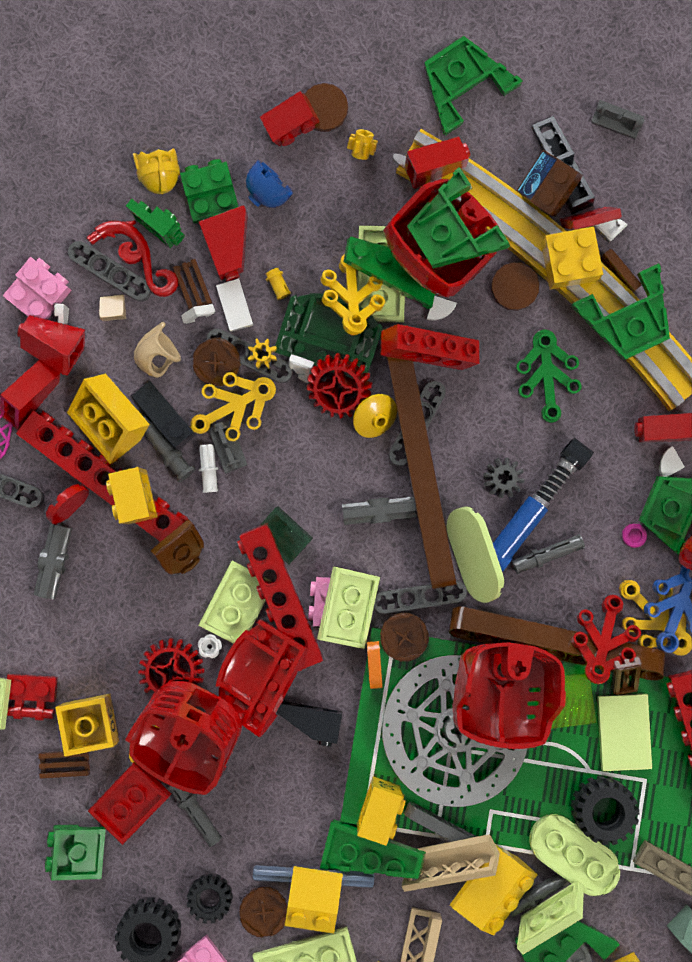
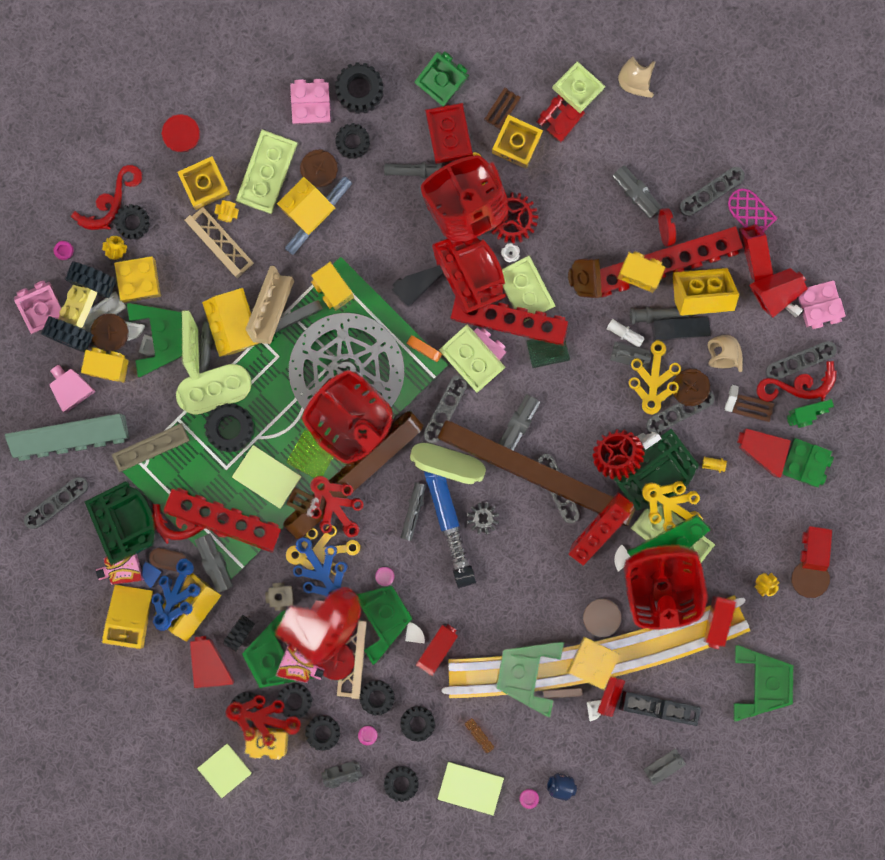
camera: 125 degrees right, 0 degrees up
(112, 308) = (775, 345): slope -> none
(157, 170) = (844, 438): yellow helmet -> none
(234, 305) = (720, 426): white tile -> none
(265, 359) = (674, 425): yellow gear -> none
(266, 187) = (783, 501): blue cylinder -> none
(353, 853) = (312, 256): green wing -> none
(375, 415) = (582, 463): yellow dish -> none
(404, 636) = (427, 380): reddish brown tile -> none
(443, 233) = (667, 586): green wing -> none
(548, 372) = (531, 597): green plant -> none
(549, 183) = (652, 686): reddish brown slope -> none

